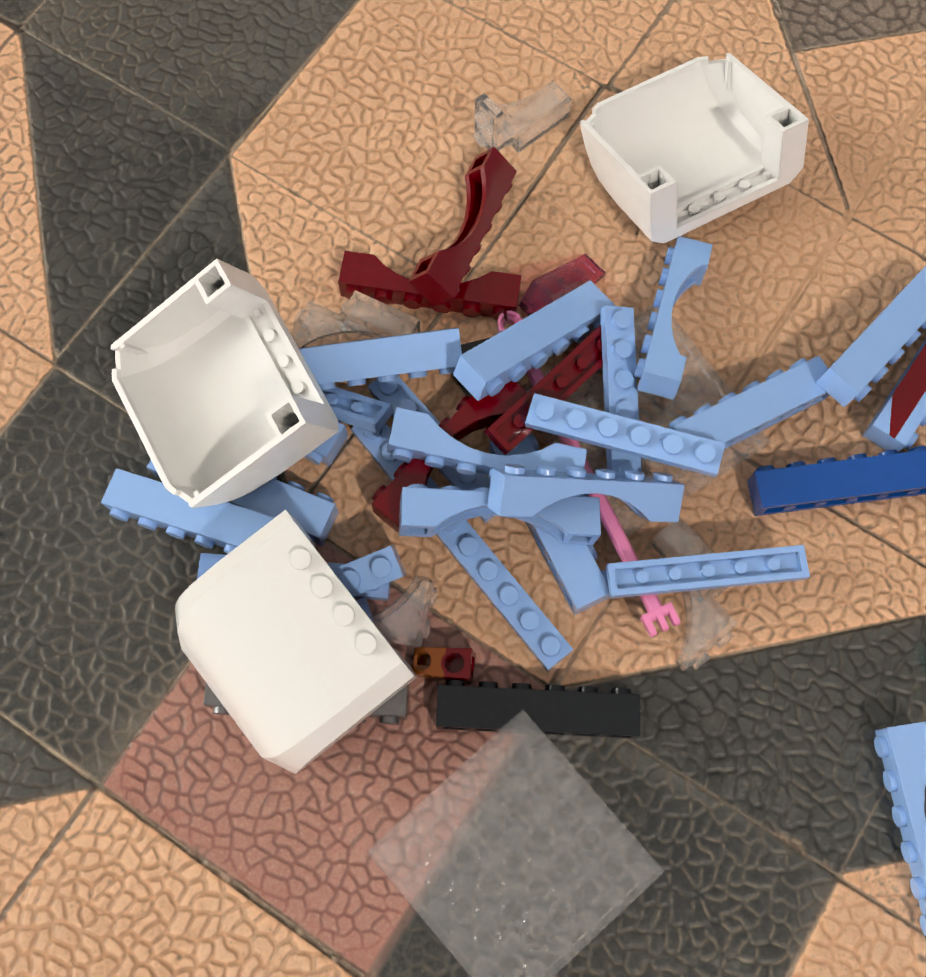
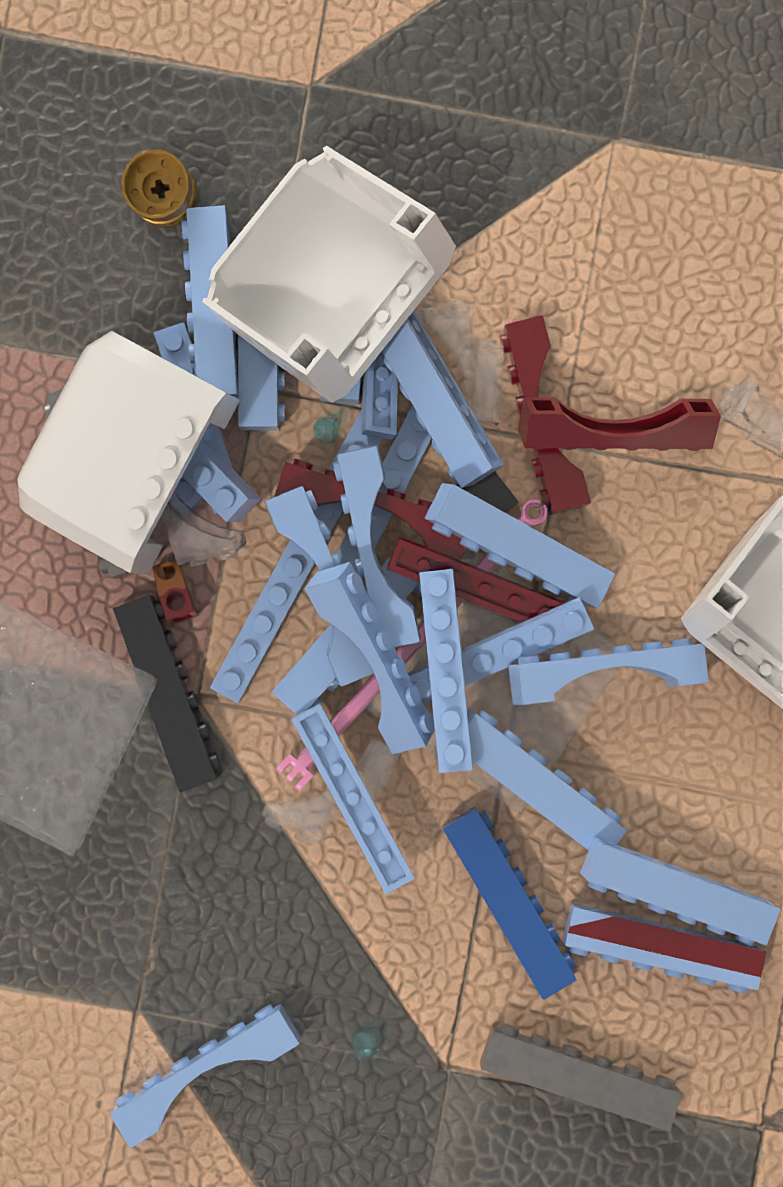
camera: 70 degrees right, 15 degrees up
(57, 506) = (144, 179): none -> pearl gold wheel
(357, 469) = (326, 429): none -> clear light blue hinge
(559, 282) = (602, 547): clear pink slope -> none

